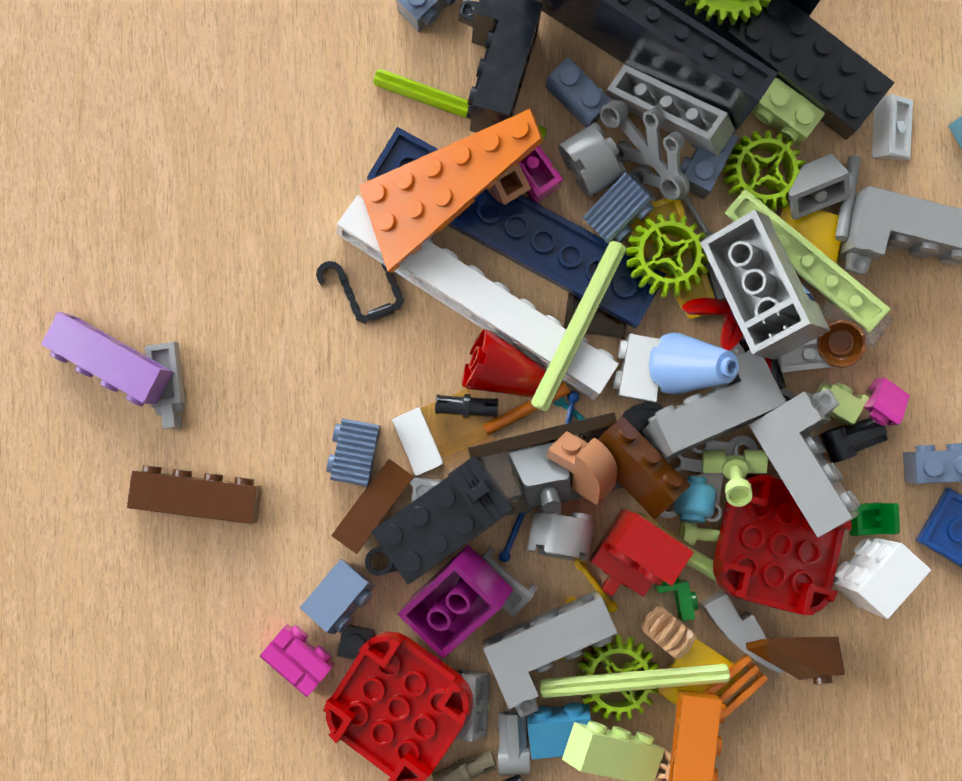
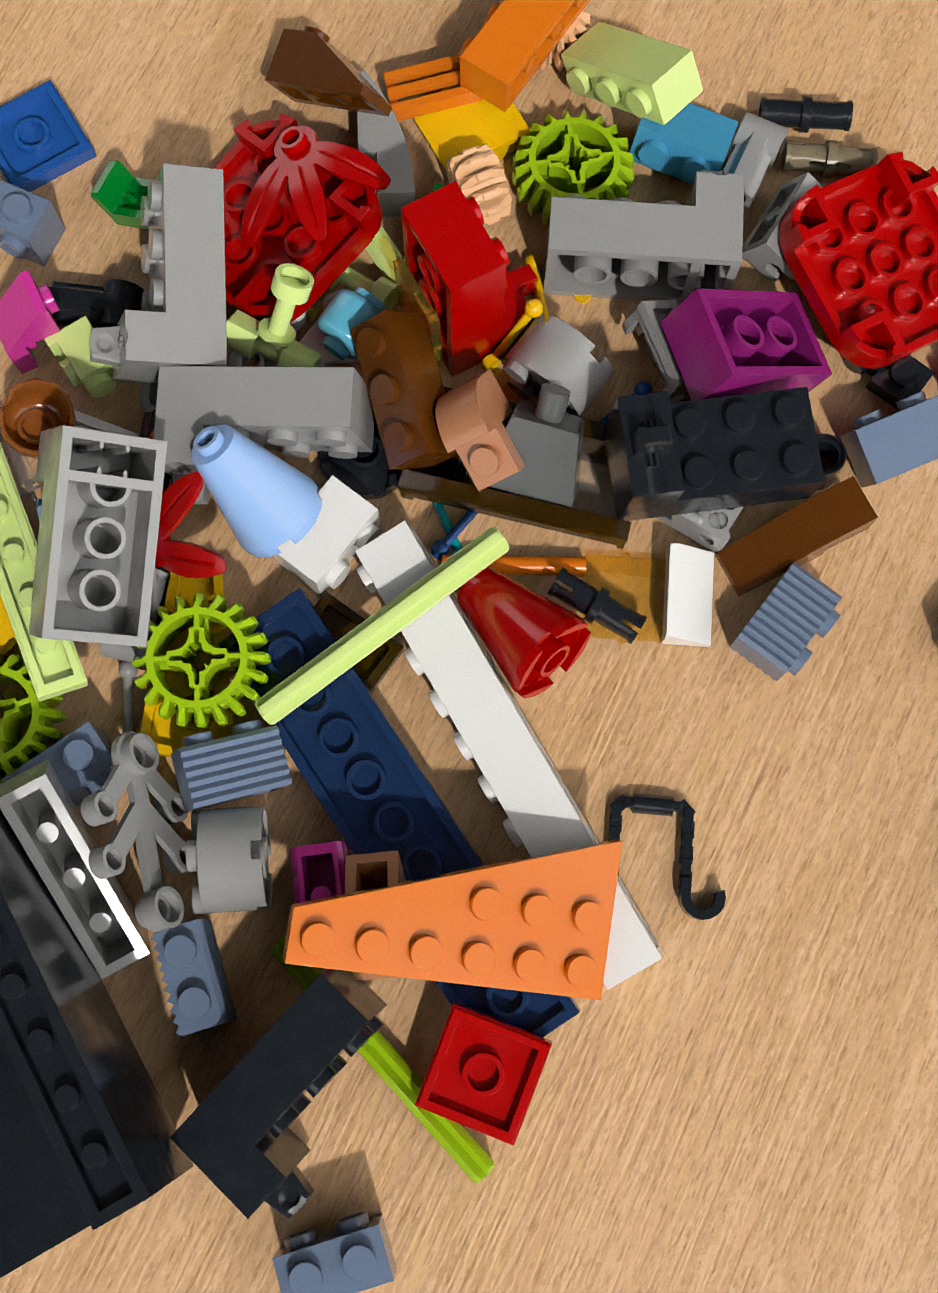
camera: 150 degrees left, 10 degrees down
(401, 121) = (483, 1073): none -> red tile
(592, 559) = (533, 309): none -> yellow hinge
(634, 680) = (557, 144): yellowish green axle -> none
(782, 582) = (297, 157): none -> red plant
(880, 575) = (168, 104): white brick -> none

